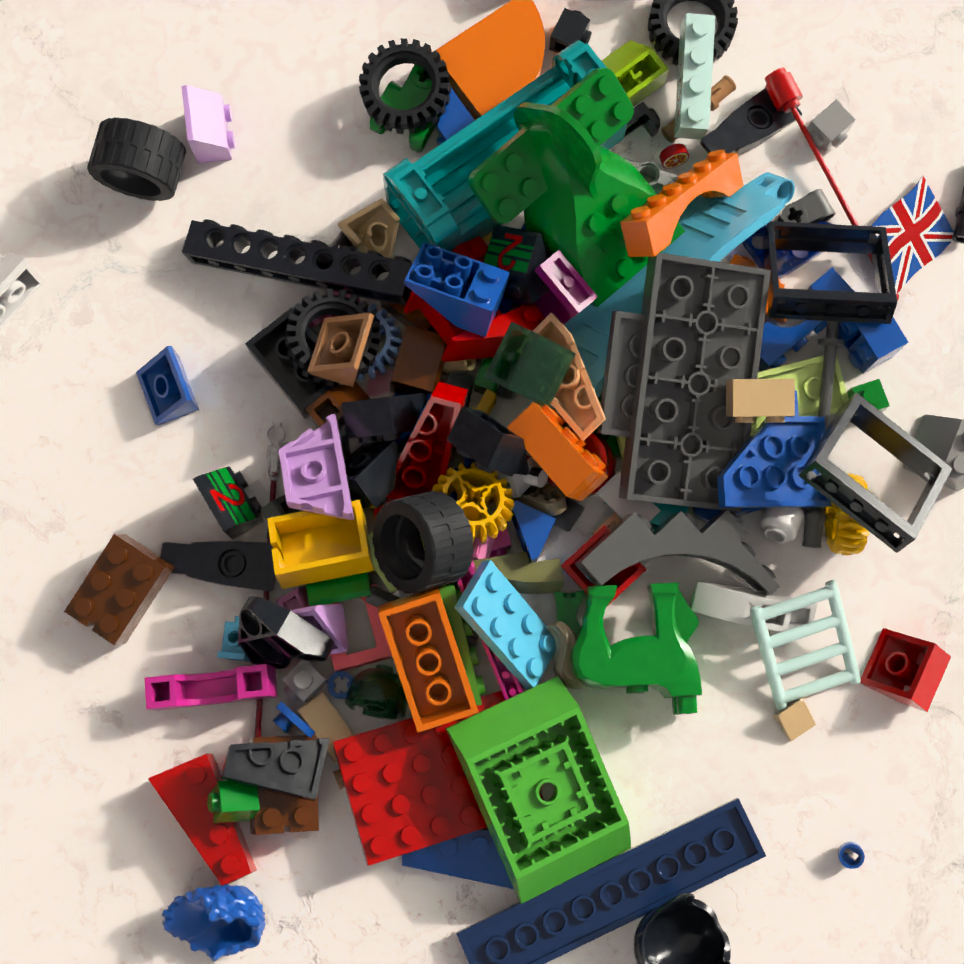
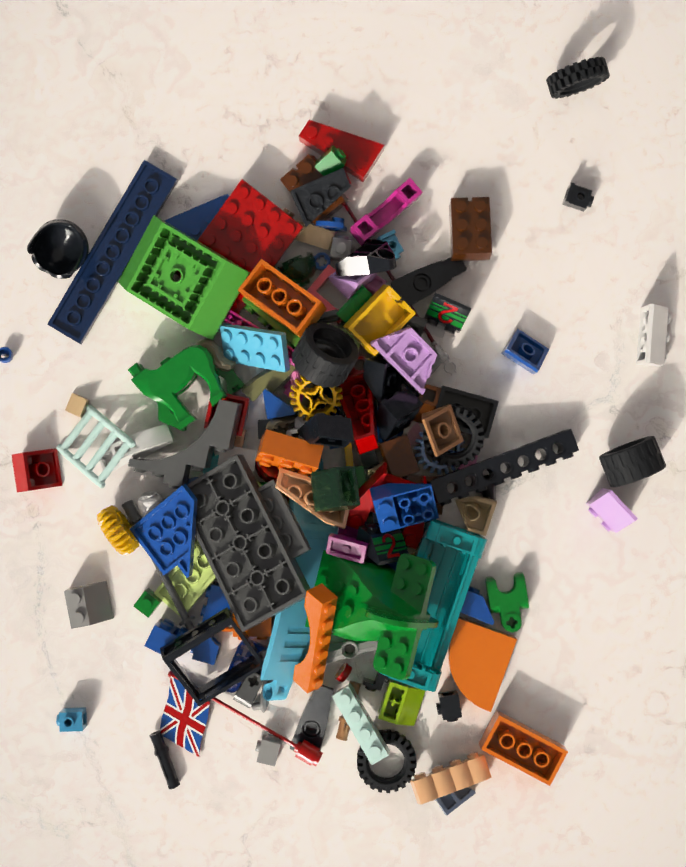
camera: 150 degrees right, 10 degrees up
(216, 920) = (299, 102): blue hair -> none
(397, 55) = (534, 621): black tyre -> none
(760, 398) = (201, 556): tan brick -> none
(801, 184) = (263, 704): none -> light grey bar
(857, 500) = (122, 534): black window -> none

